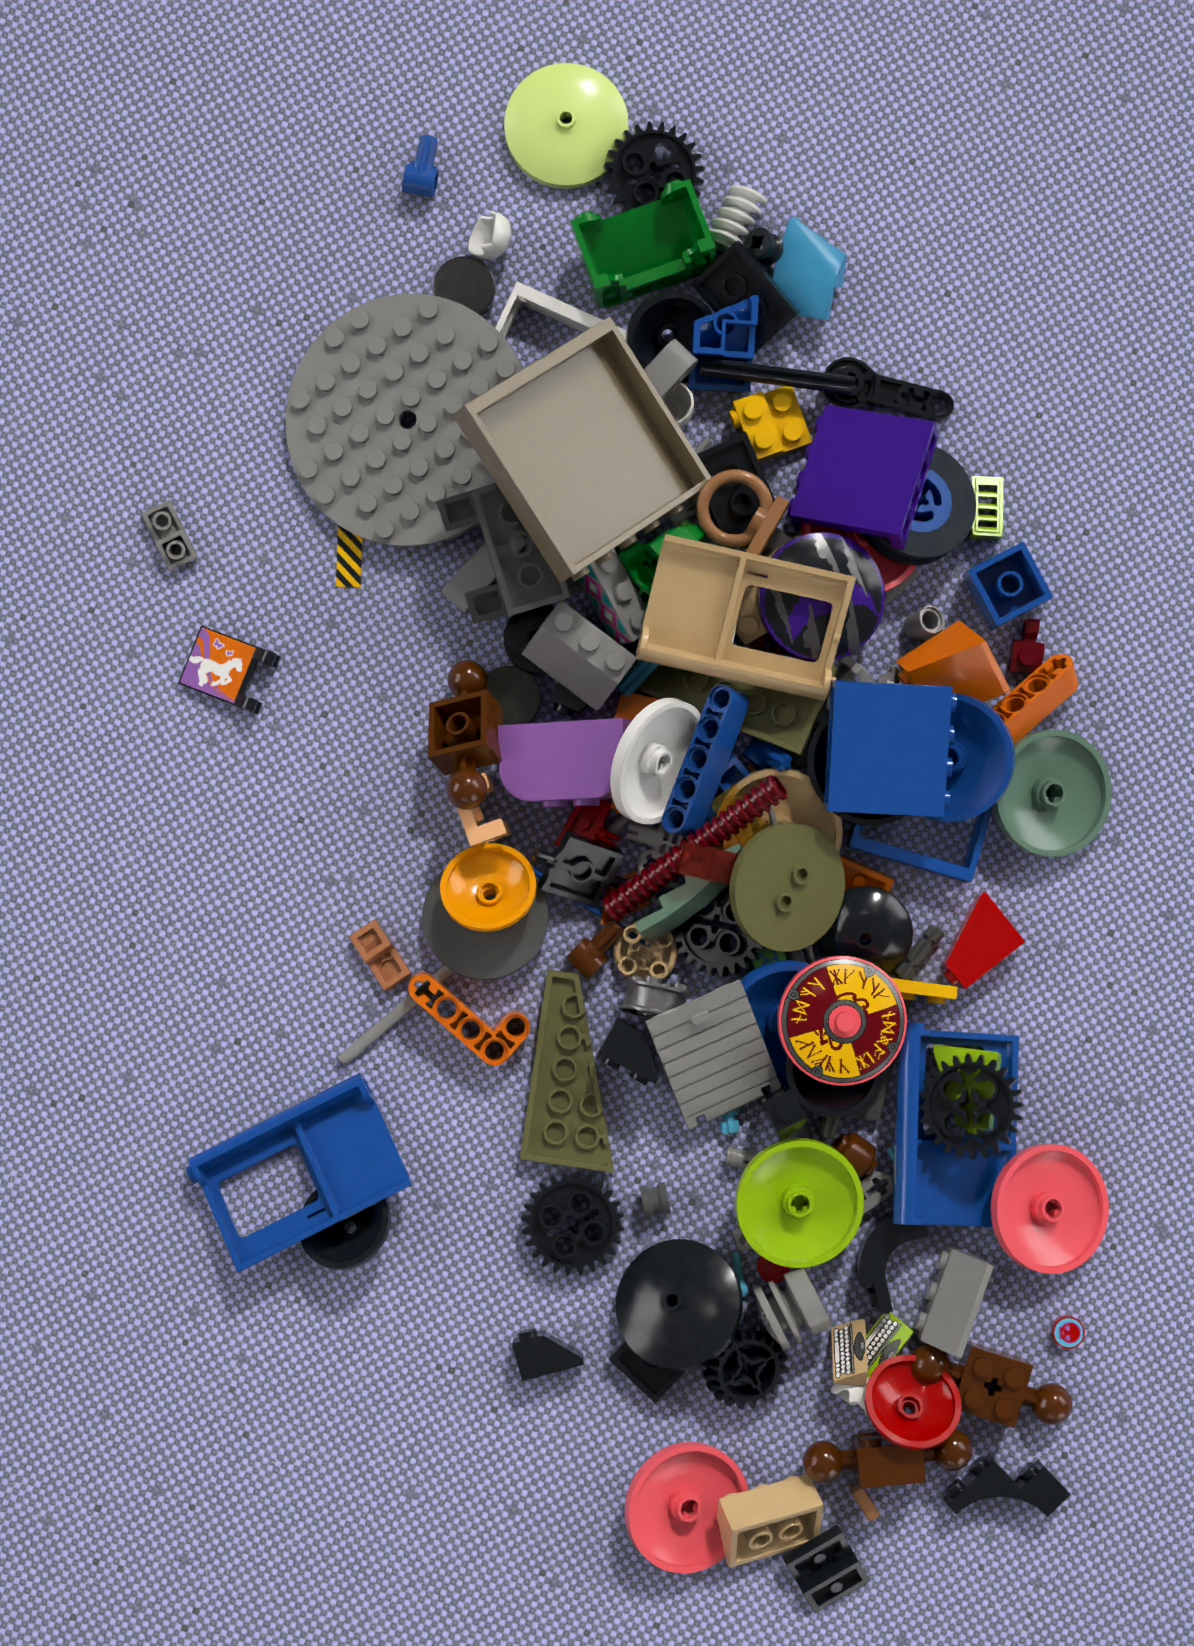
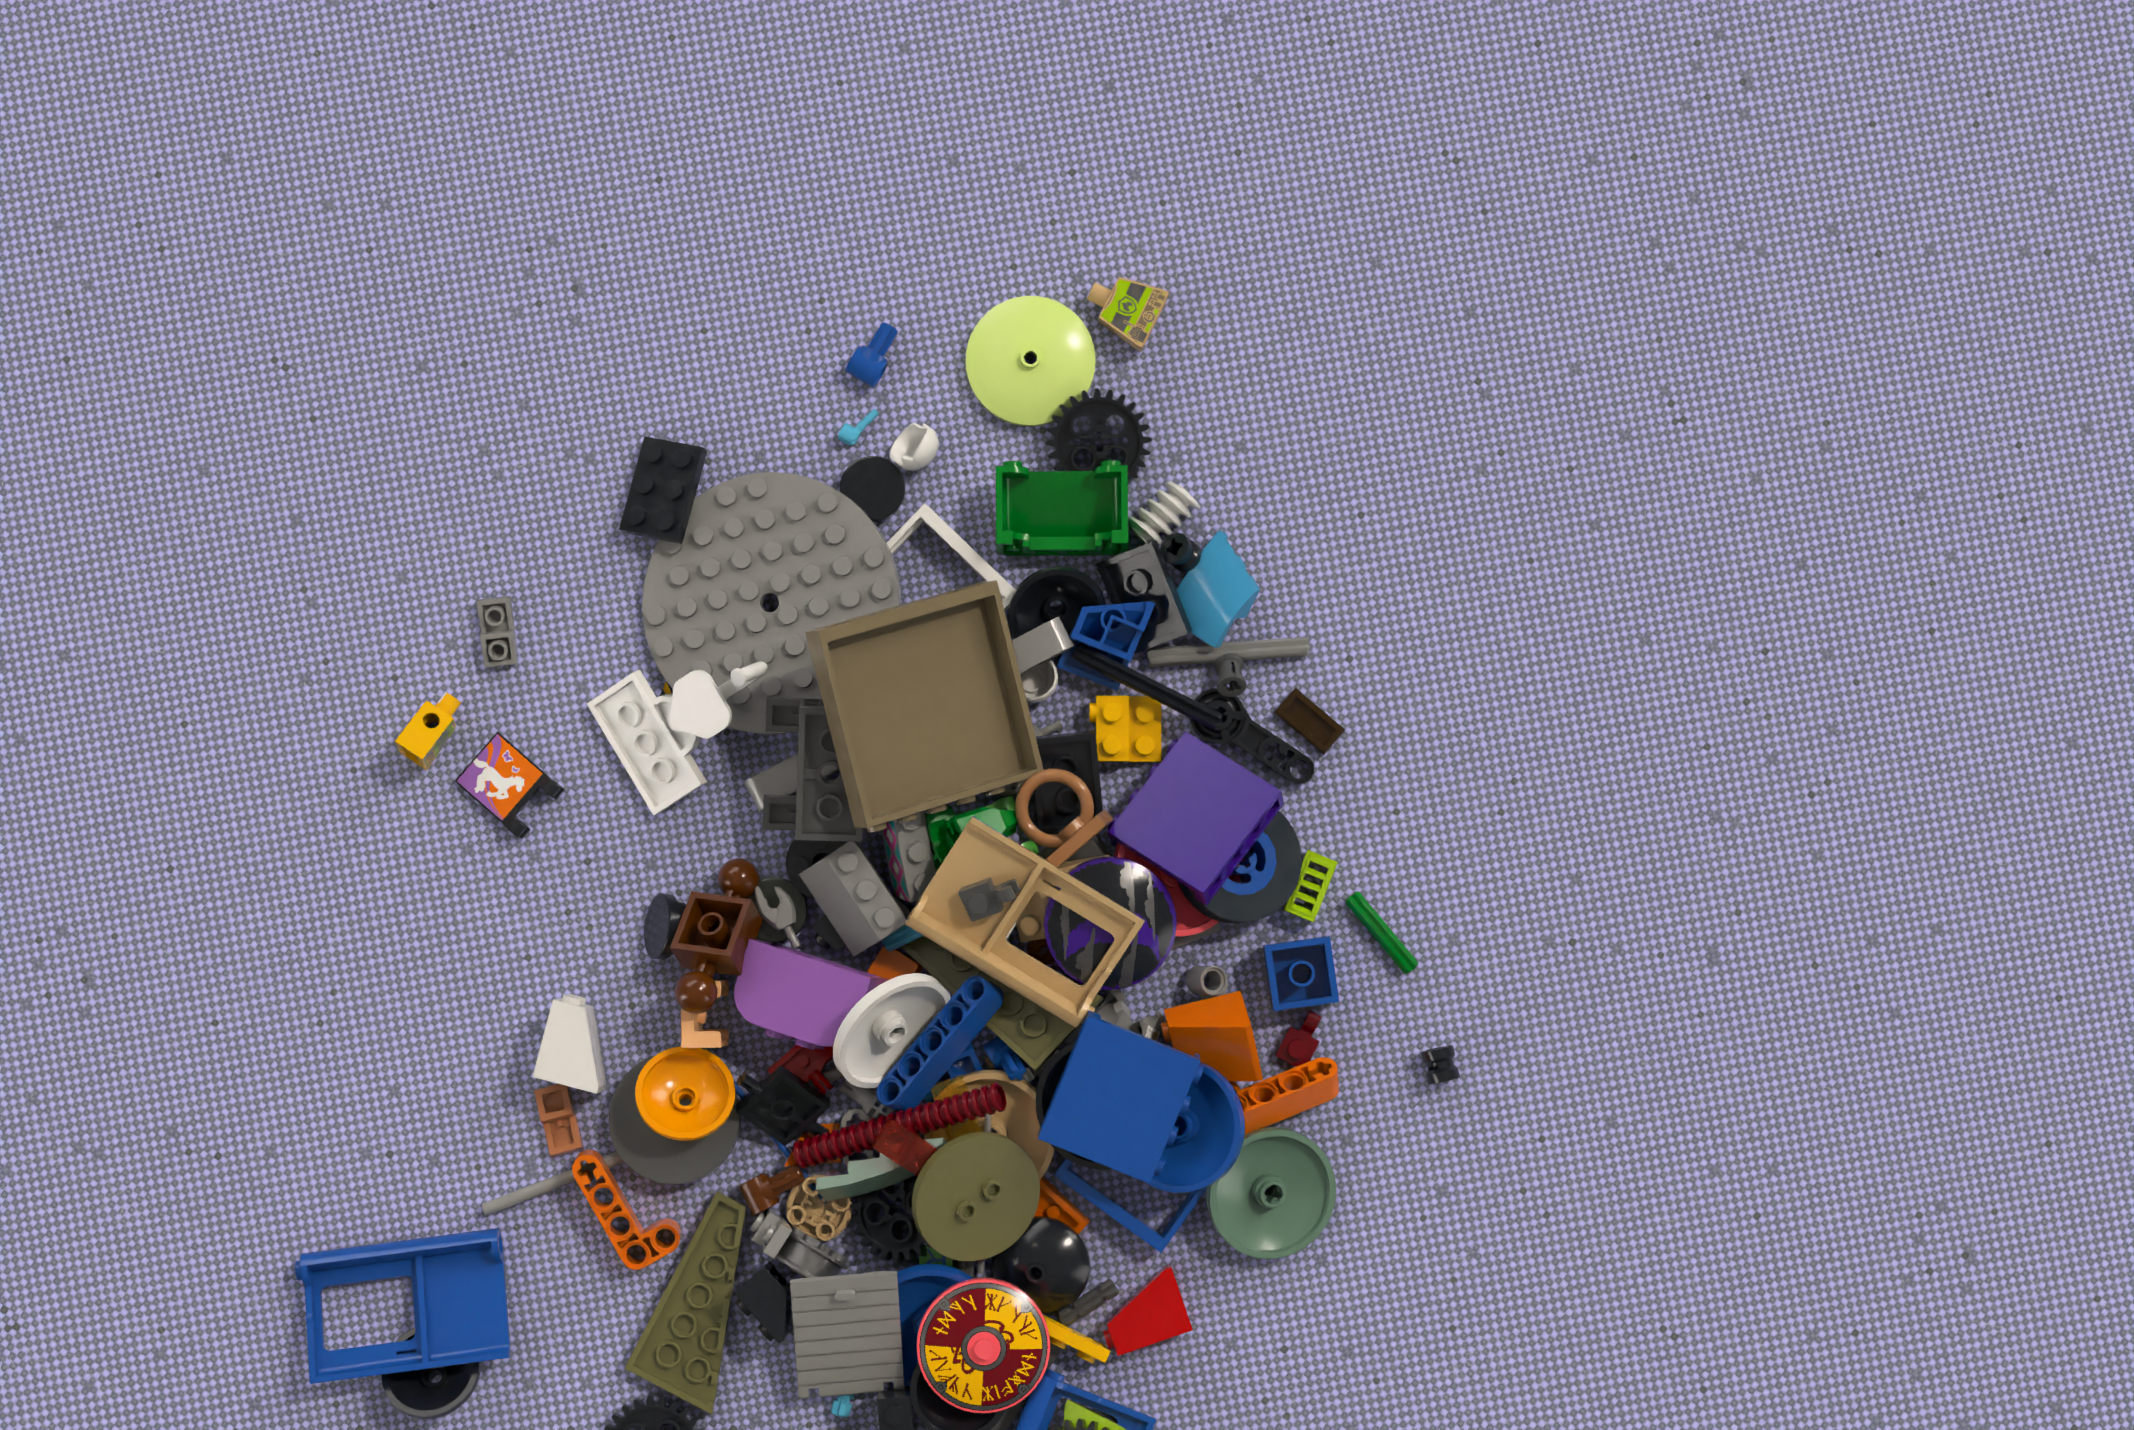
camera: 15 degrees right, 0 degrees up
(137, 645) = (424, 743): none -> yellow torso
(275, 353) = (663, 490): none -> black plate
(349, 572) = (661, 732): none -> white plate
(368, 883) = (571, 1046): none -> white slope
(412, 745) = (661, 925): none -> black tile
(427, 247) = (850, 434): none -> medium azure hand
(518, 700) = (781, 917): none -> light grey hand
(609, 988) = (770, 1232): none -> light grey slope
(639, 47) = (1129, 309): none -> torso
(702, 608) = (985, 899): none -> dark grey plate
(837, 323) = (1245, 649): none -> light grey axle
(843, 340) = (1230, 675): none -> dark grey bush
(932, 360) = (1309, 721): none -> dark brown tile
(1065, 526) = (1381, 932): none -> green axle
(1161, 625) = (1440, 1064): none -> black wheel

